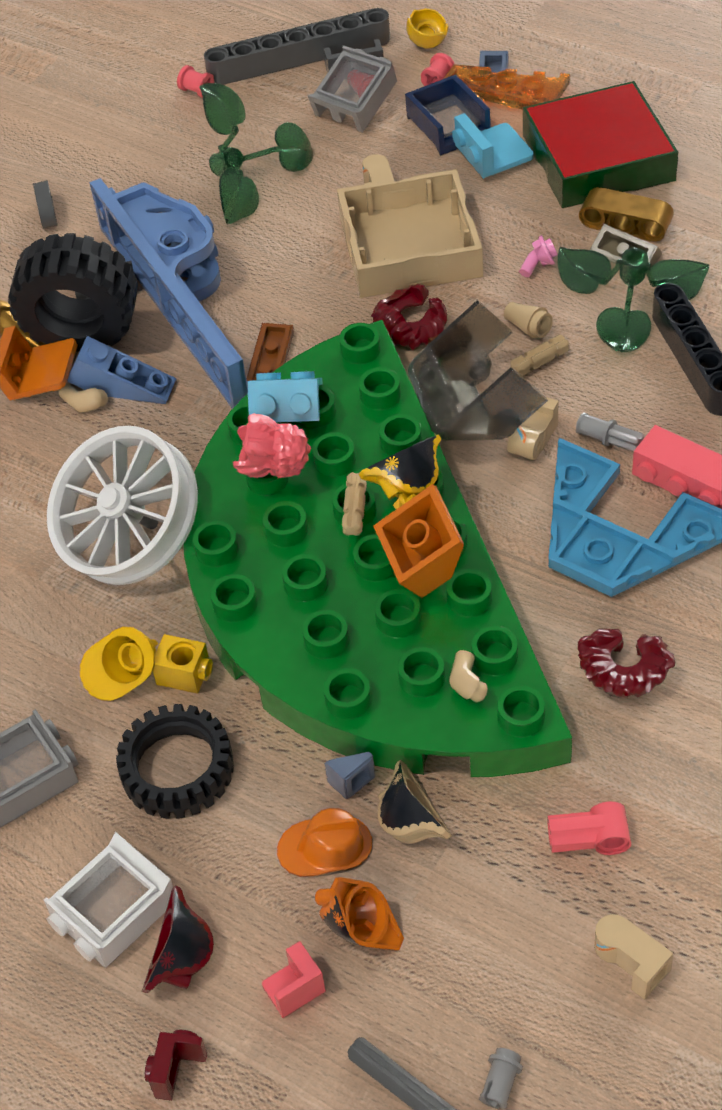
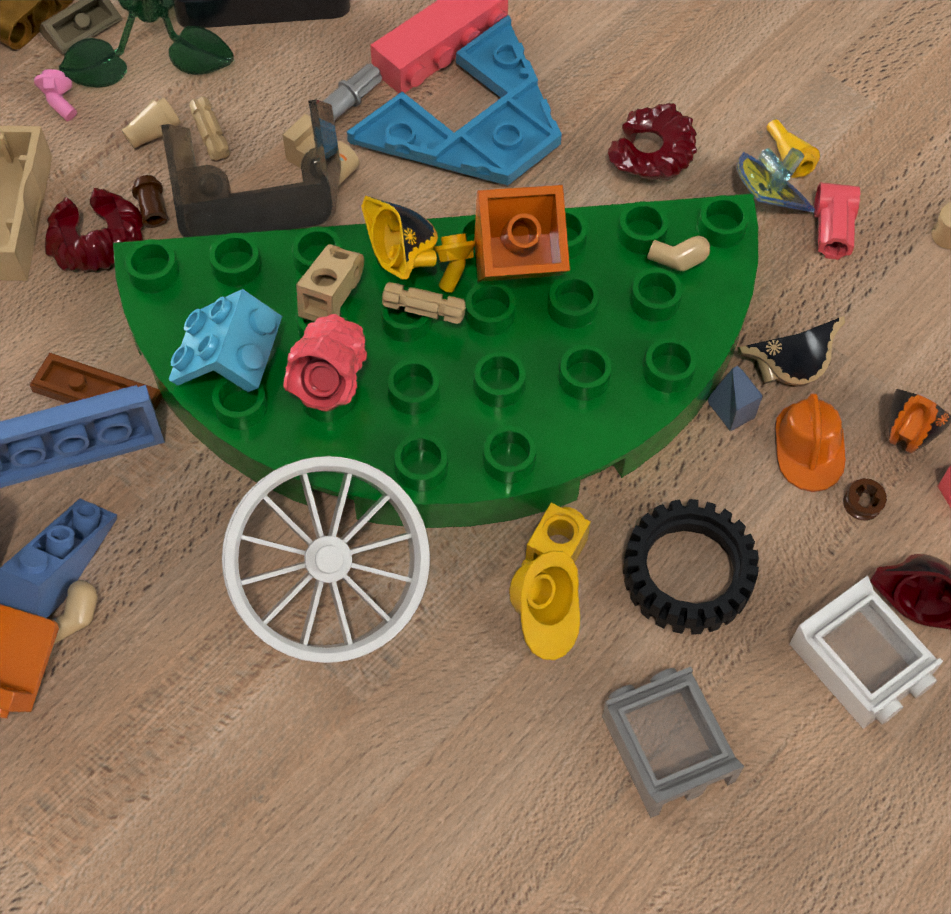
camera: 85 degrees left, 10 degrees up
(268, 882) = (870, 487): none -> reddish brown bush
(354, 437) = (328, 282): none -> tan leg
(610, 763) = (770, 178): none -> clear light blue shield
(661, 786) = (787, 140): none -> yellow cone

